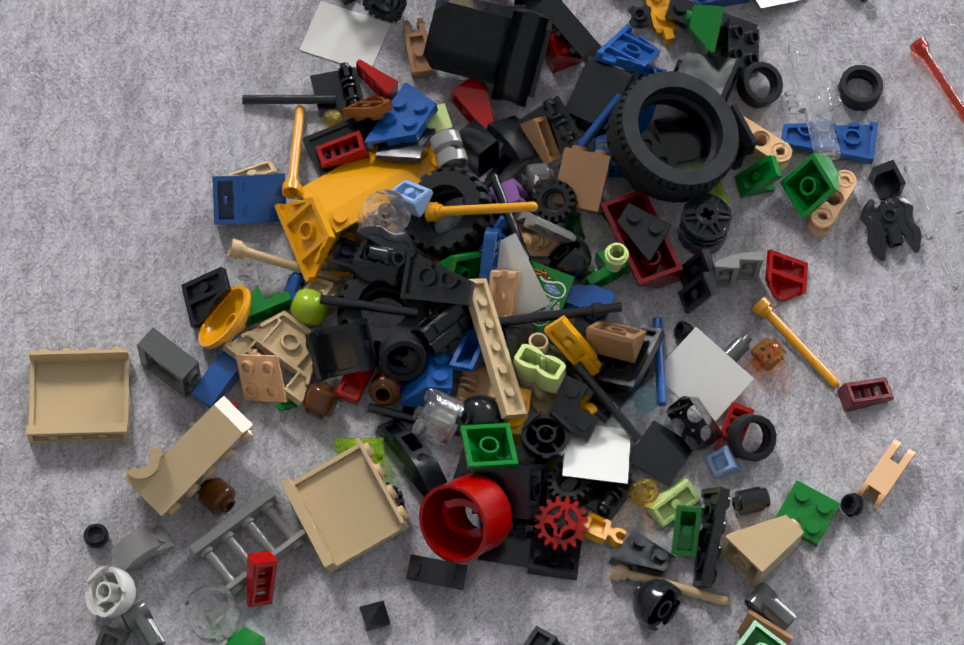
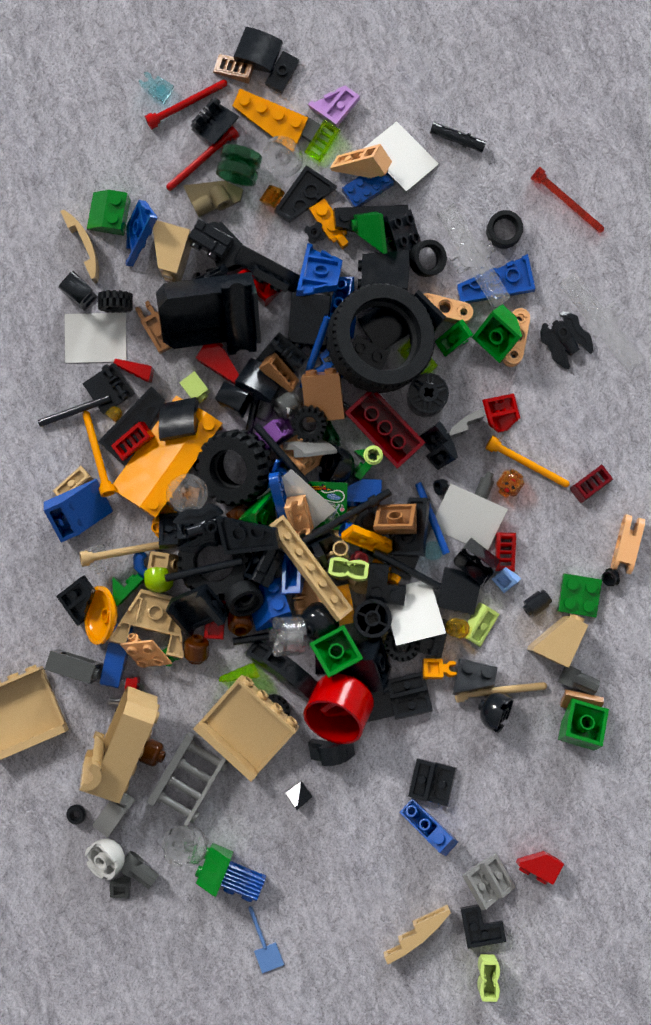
camera: 15 degrees left, 20 degrees up
(260, 563) = (207, 802): red slope -> none
(307, 234) = (134, 524): light orange wing -> none
(369, 107) = (138, 399): dark orange wing -> none
(406, 121) = (169, 398): blue wing -> none
(414, 196) = (201, 468): light blue slope -> none
(436, 211) = (224, 475): light orange piece -> none
(448, 149) = (214, 417): light grey wheel -> none
(550, 521) = (416, 680): red gear -> none
(643, 230) = (385, 424): black wing -> none
(686, 530) = (499, 648): green slope -> none
(713, 515) = (517, 643): black wing -> none
(768, 438) = (533, 555): black tyre -> none
(887, 180) = (551, 301): black panel -> none

